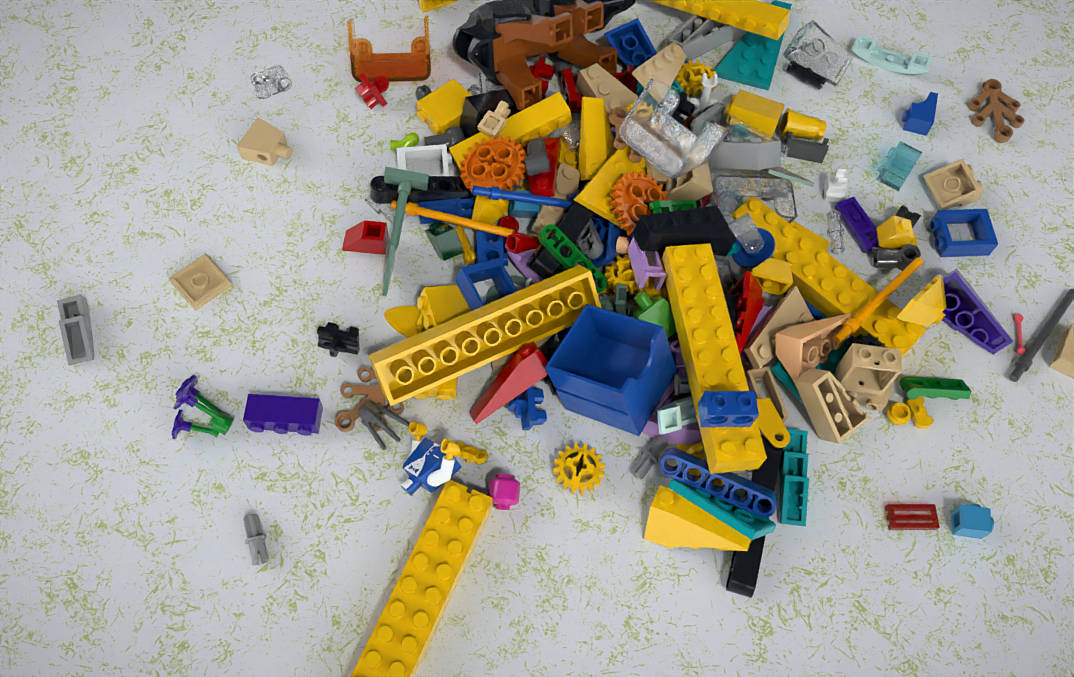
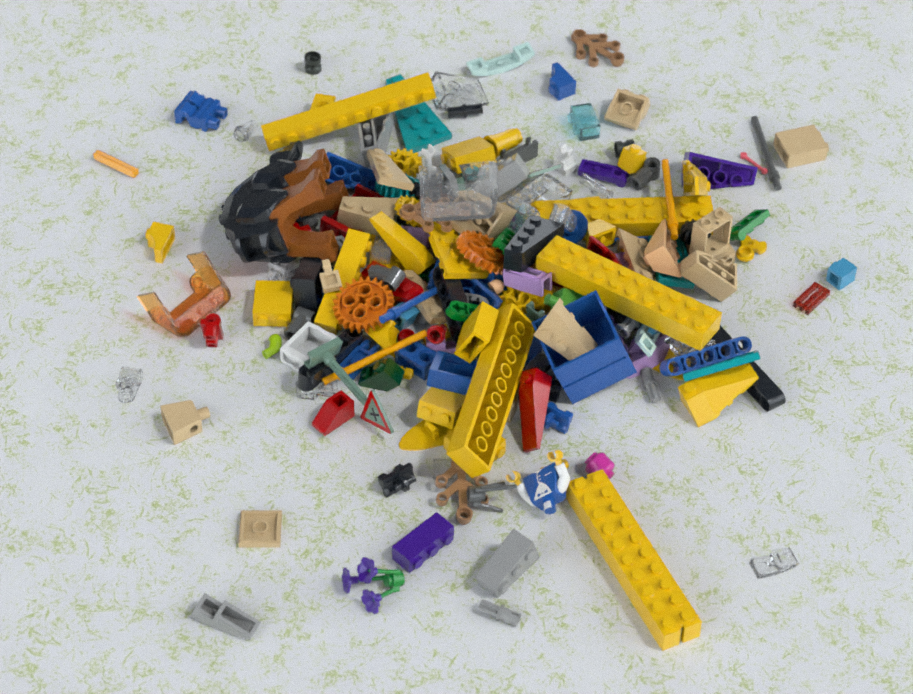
camera: 45 degrees left, 15 degrees down
(313, 503) = (507, 563): none -> light grey wedge
(419, 91) = (240, 309): dark grey hinge -> none
(537, 270) = (476, 332): none -> yellow brick
(568, 465) = (623, 421): yellow gear -> none
(595, 344) = (564, 334): none -> tan wedge
(727, 409) = (679, 301): blue brick -> none
(794, 479) = (738, 328): teal slope -> none
(982, 227) = (669, 120): blue window -> none

